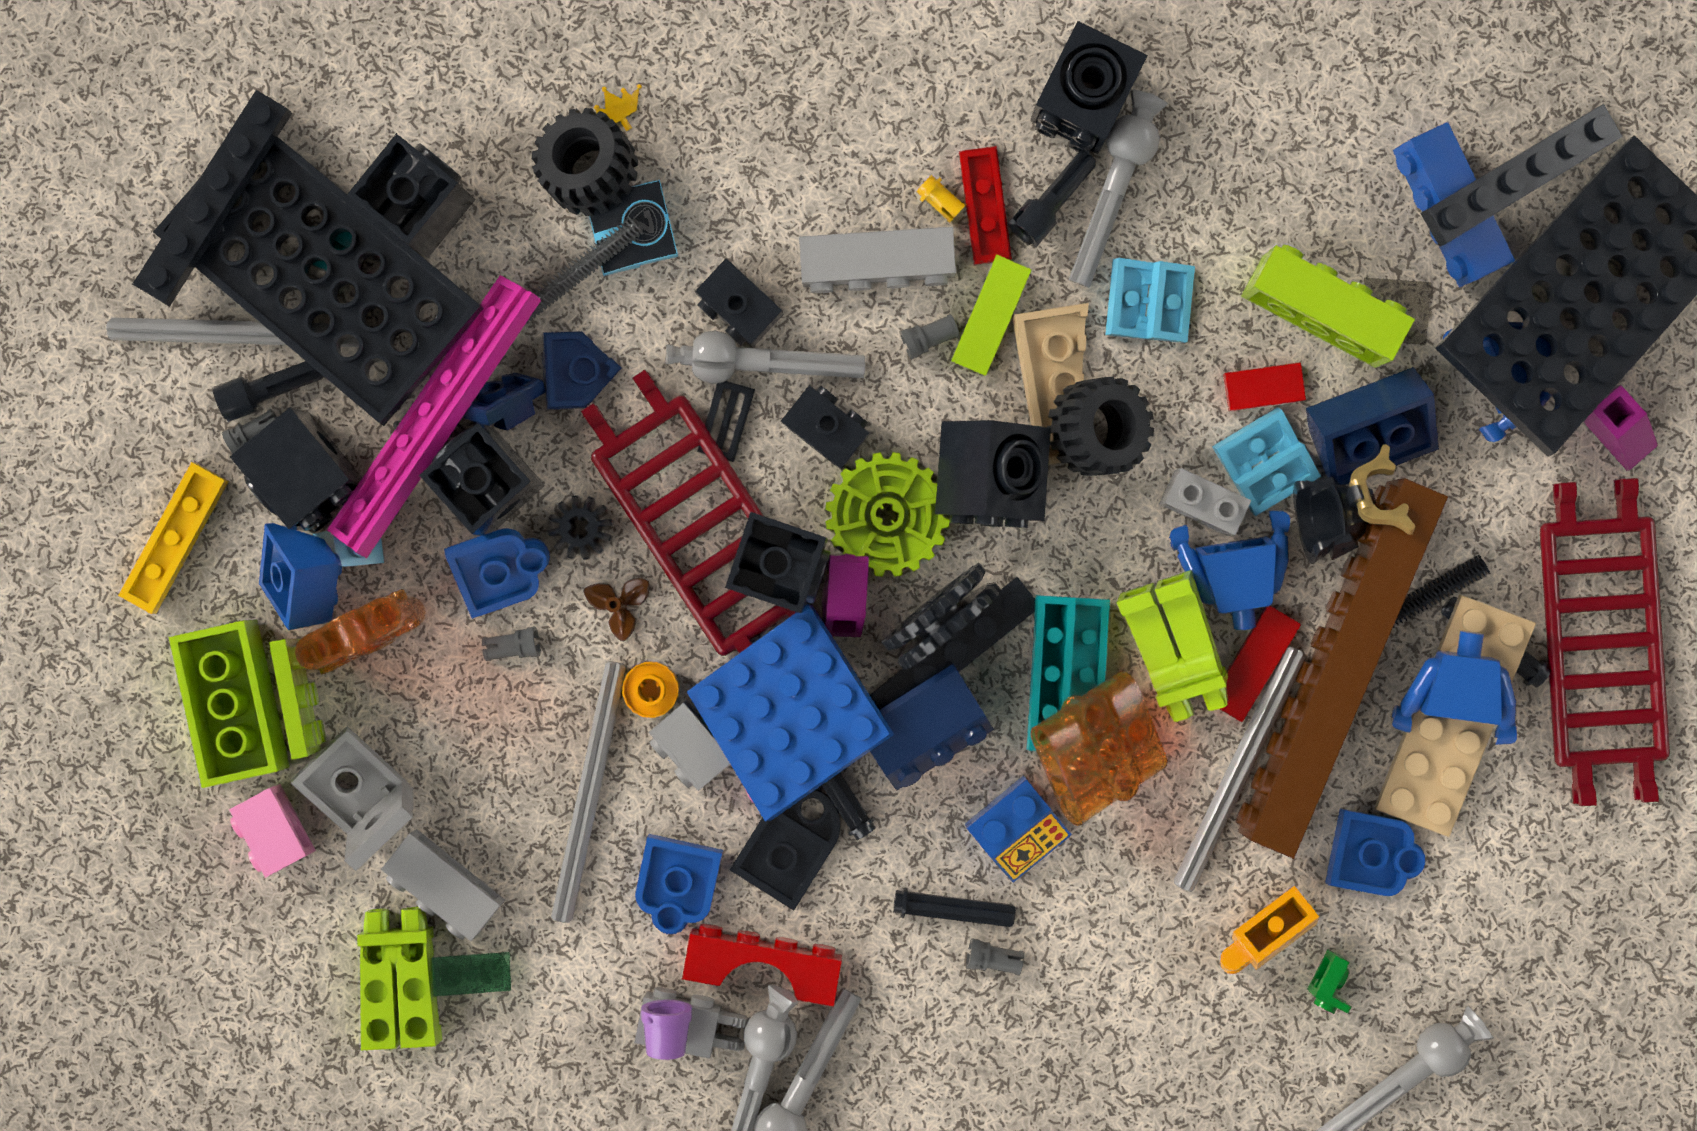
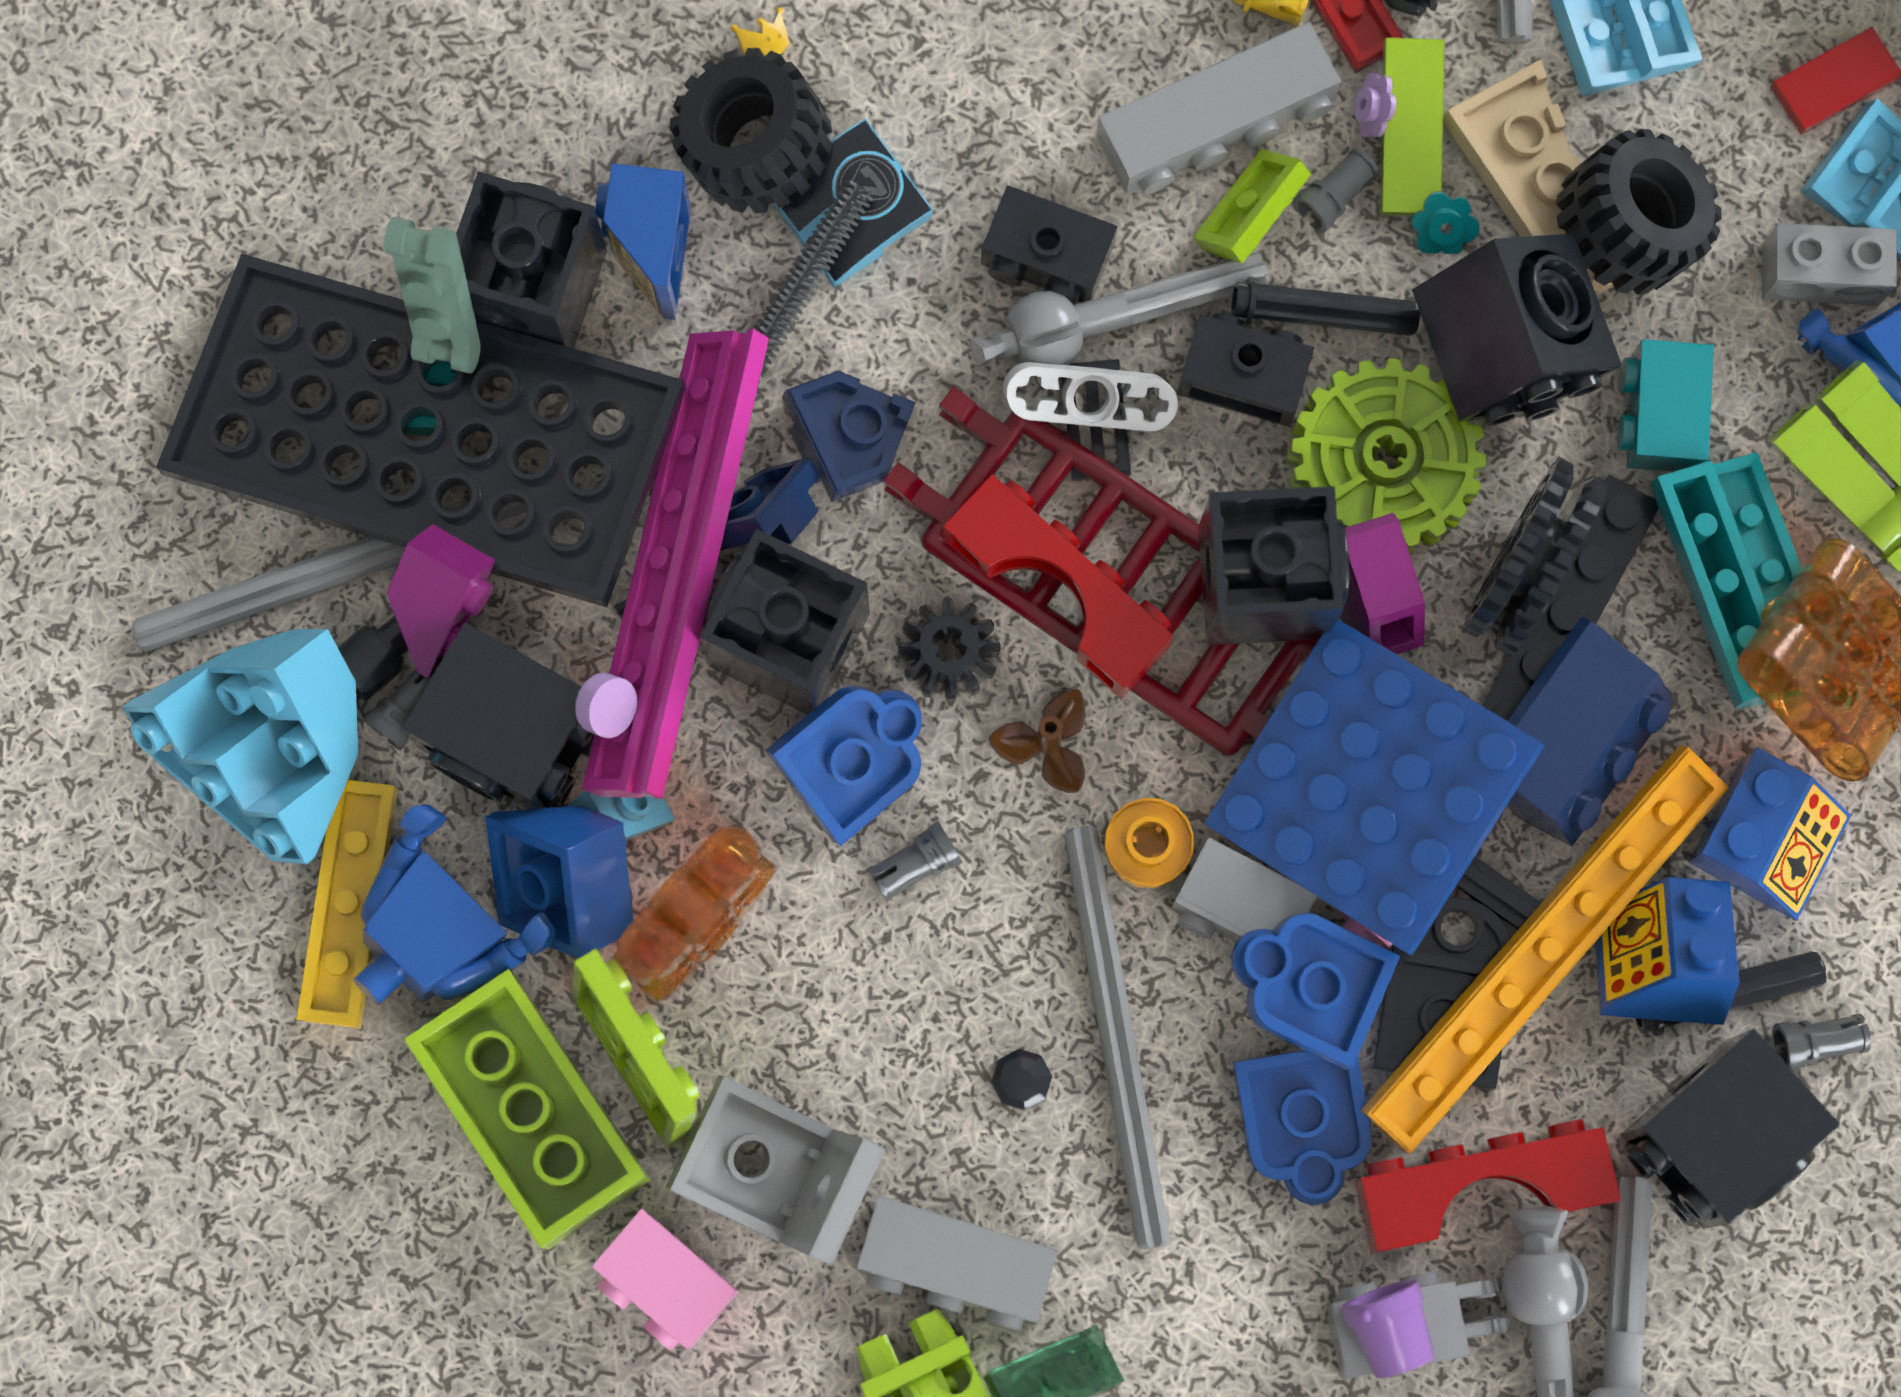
camera: 25 degrees left, 10 degrees down
(156, 419) = (260, 737): none -> medium azure brick
(211, 577) = (431, 928): none -> blue torso
(212, 198) = (228, 386): black plate -> none
(284, 379) = (436, 592): none -> magenta slope
(341, 201) = (434, 294): none -> sand green plate
(353, 490) = (606, 705): none -> lavender tile
(497, 203) = (647, 225): none -> blue slope
(523, 795) = (1021, 1079): none -> black tile
(635, 472) = (1003, 534): none -> red arch
(707, 813) = (1314, 984): none -> blue plate
(729, 424) = (1135, 386): none -> white beam
(854, 844) = (1544, 949): none -> light orange tile
(872, 326) = (1252, 205): none -> lime plate
(887, 407) = (1323, 308): none -> black axle
(910, 994) = (1729, 1133): none -> black brick
(922, 875) = (1671, 954): none -> blue slope
(973, 292) = (1374, 105): none -> lavender plant
(985, 375) = (1441, 210): none -> teal plant
(1069, 549) = (1667, 405): none -> teal brick

